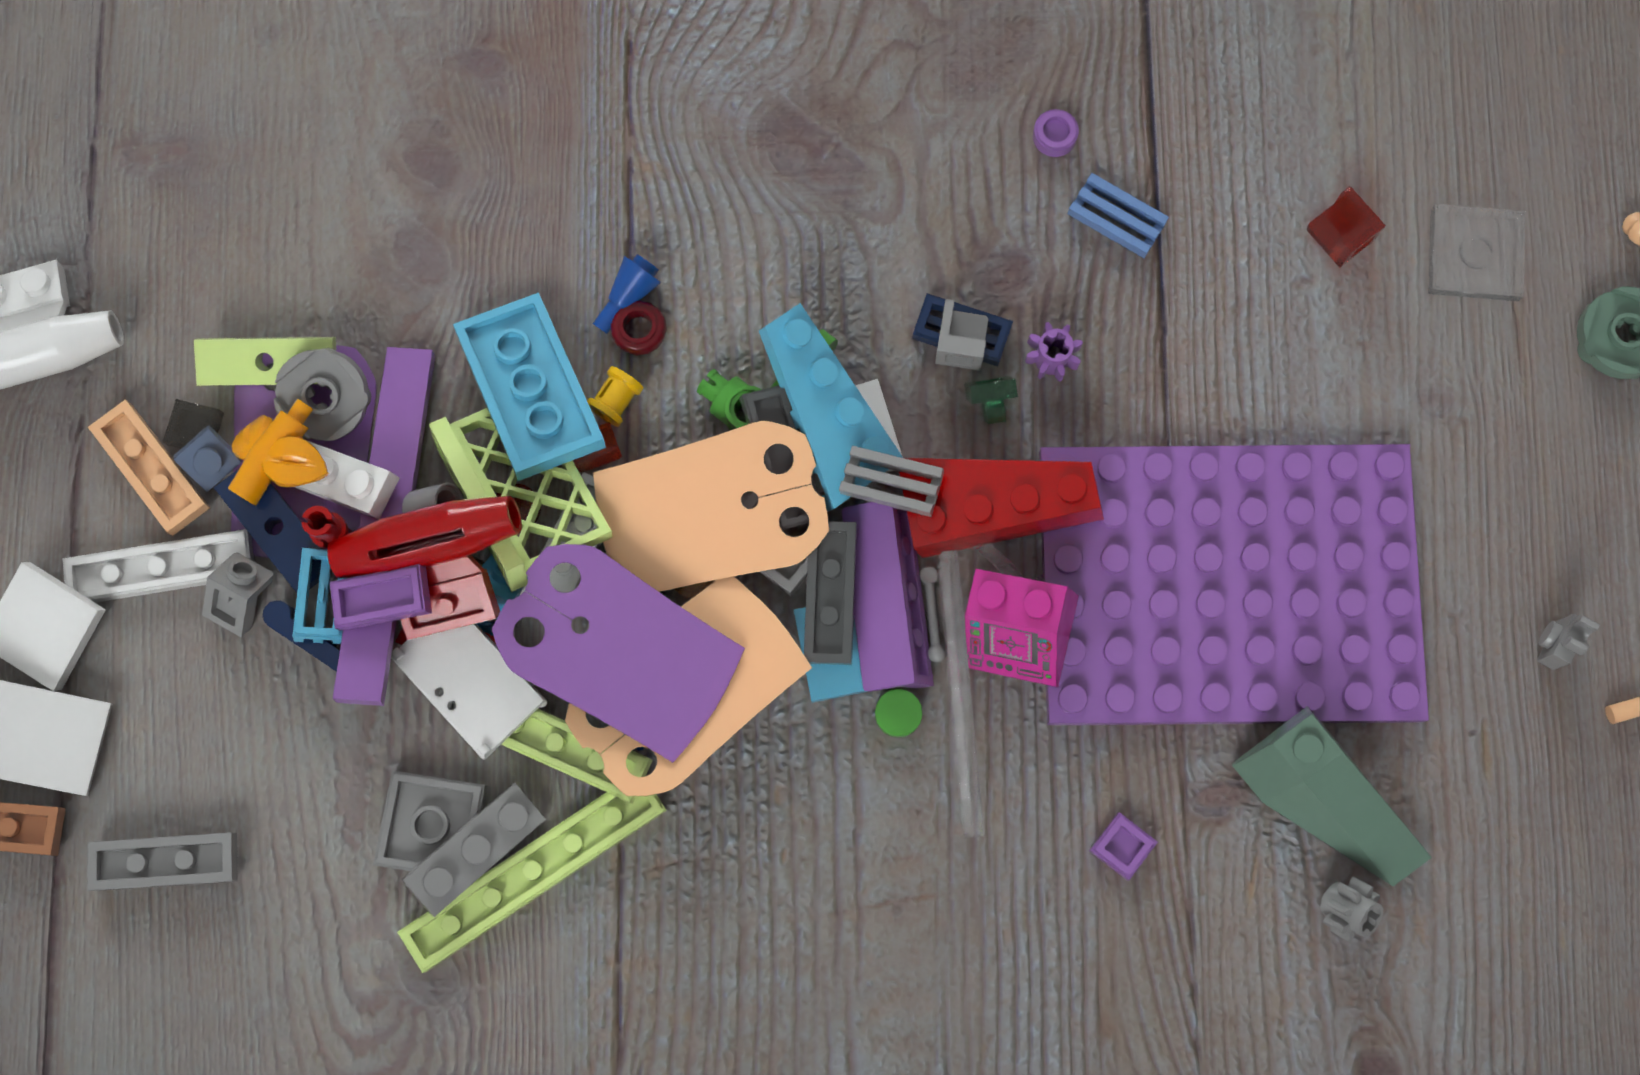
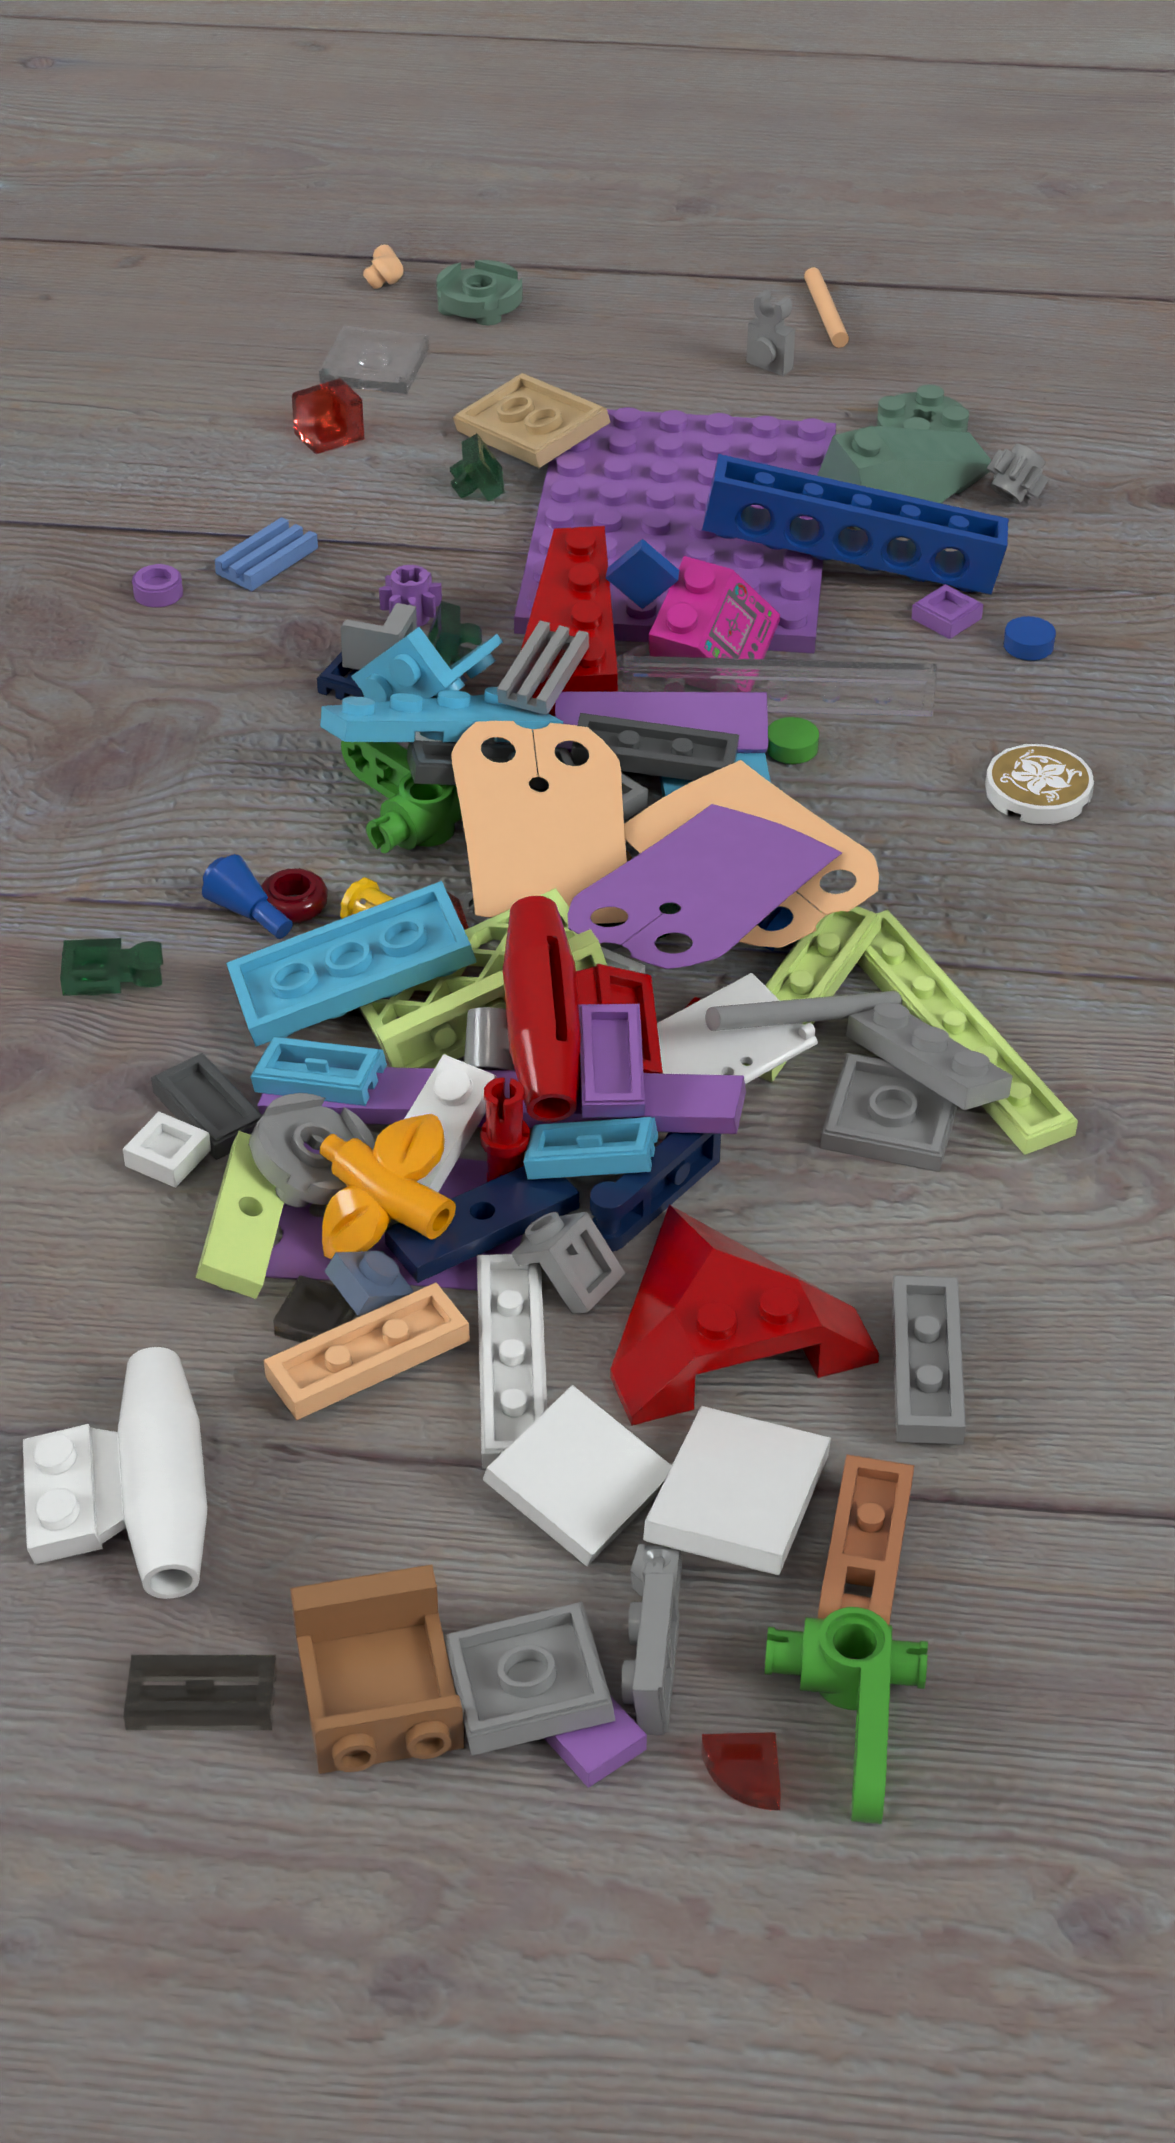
camera: 85 degrees left, 35 degrees down
(198, 716) = (717, 1307): none -> red wedge
(335, 292) = (167, 1149): none -> white plate
(396, 312) = (207, 1100): none -> dark grey tile
(401, 419) = (319, 1069): none -> medium azure tile
(501, 746) = (795, 1010): none -> light grey bar
(530, 200) = (103, 965): none -> clear green plate
(863, 938) = (1039, 783): none -> tile
(907, 395) = (419, 669): none -> medium azure bracket
(1037, 551) = (642, 574): none -> blue tile
(1087, 926) = (1029, 638): none -> blue tile
(1188, 748) = (879, 514): none -> blue brick
(1276, 383) = (477, 470): none -> clear green tile
(1366, 418) = (531, 419): none -> tan tile
(1485, 809) = (923, 410): none -> sand green plate

